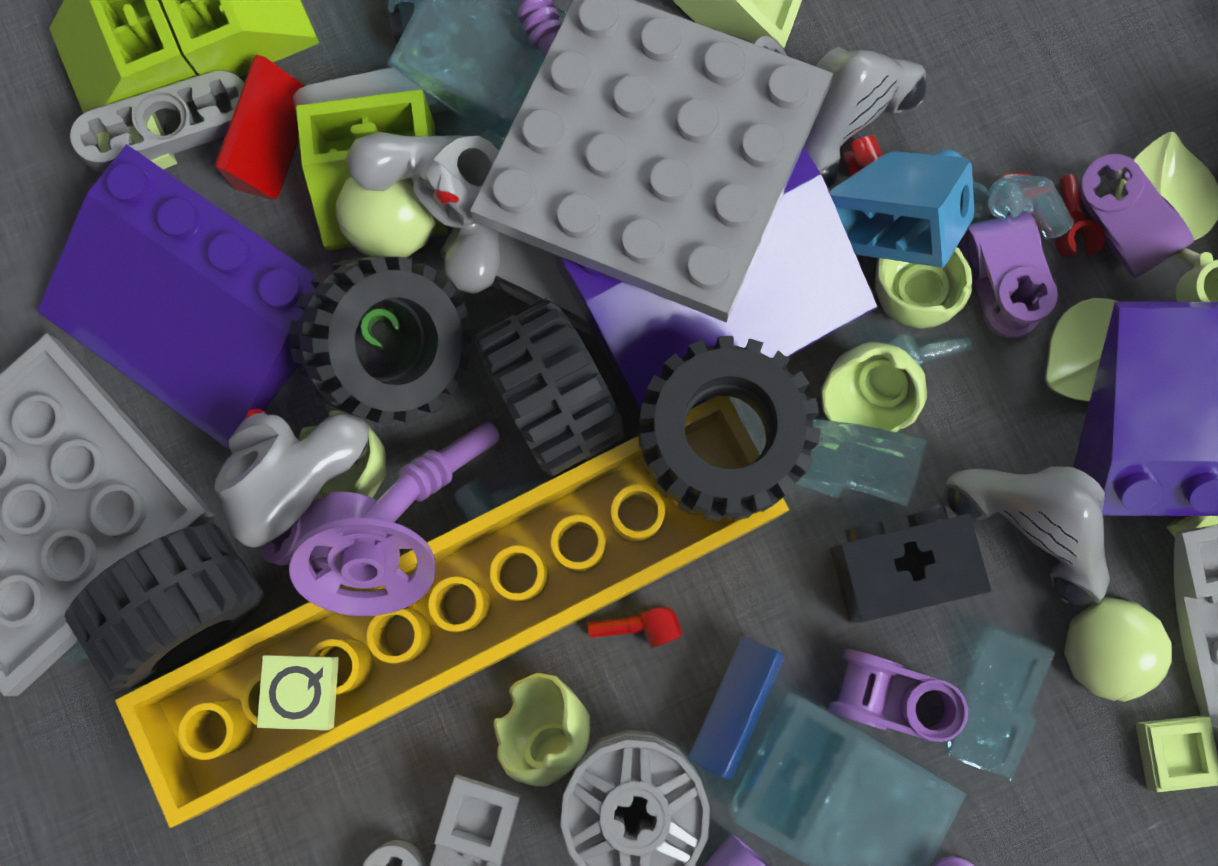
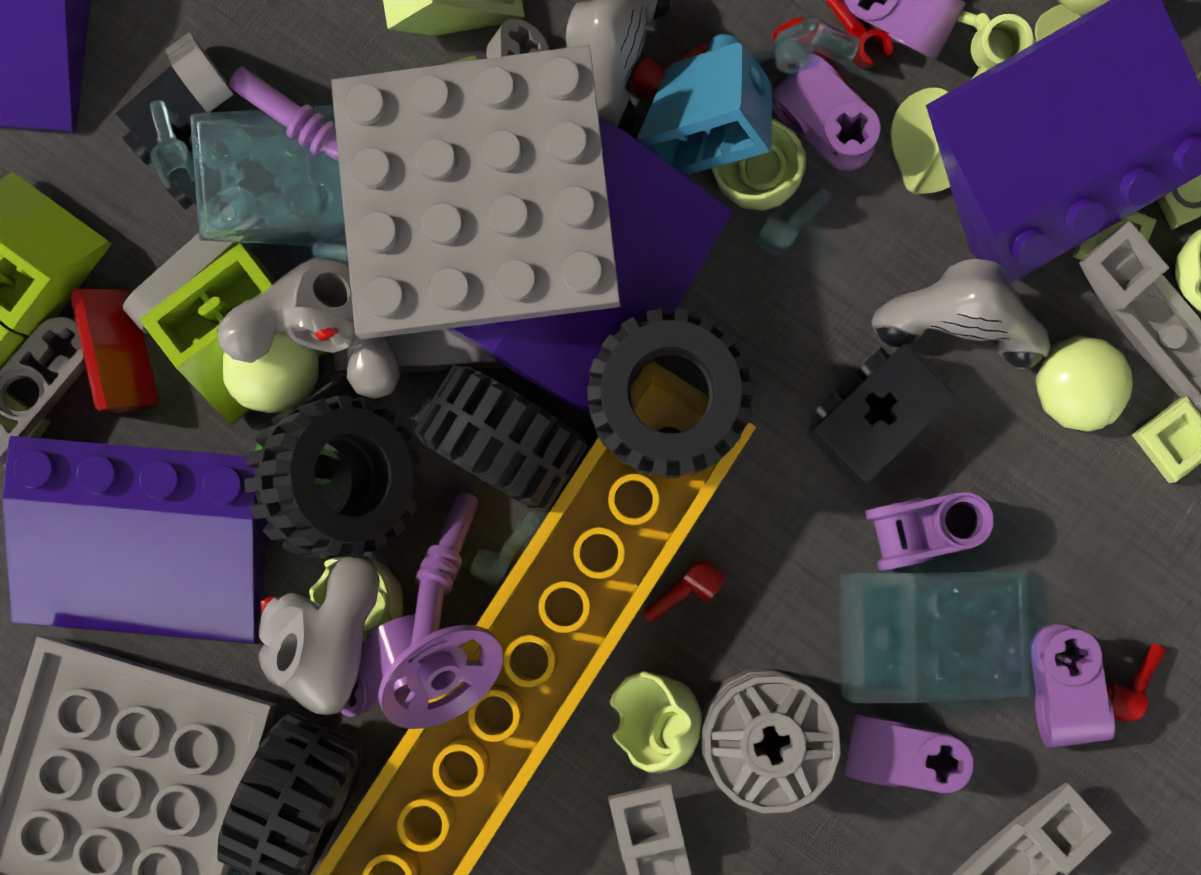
camera: 25 degrees left, 5 degrees up
(297, 692) = (444, 806): yellowish green tile -> none
(736, 708) = (804, 611): blue slope -> none
(864, 460) = (794, 345): clear light blue slope -> none
(875, 387) = (769, 282): yellowish green hair -> none
(999, 701) = (1012, 480): clear light blue slope -> none

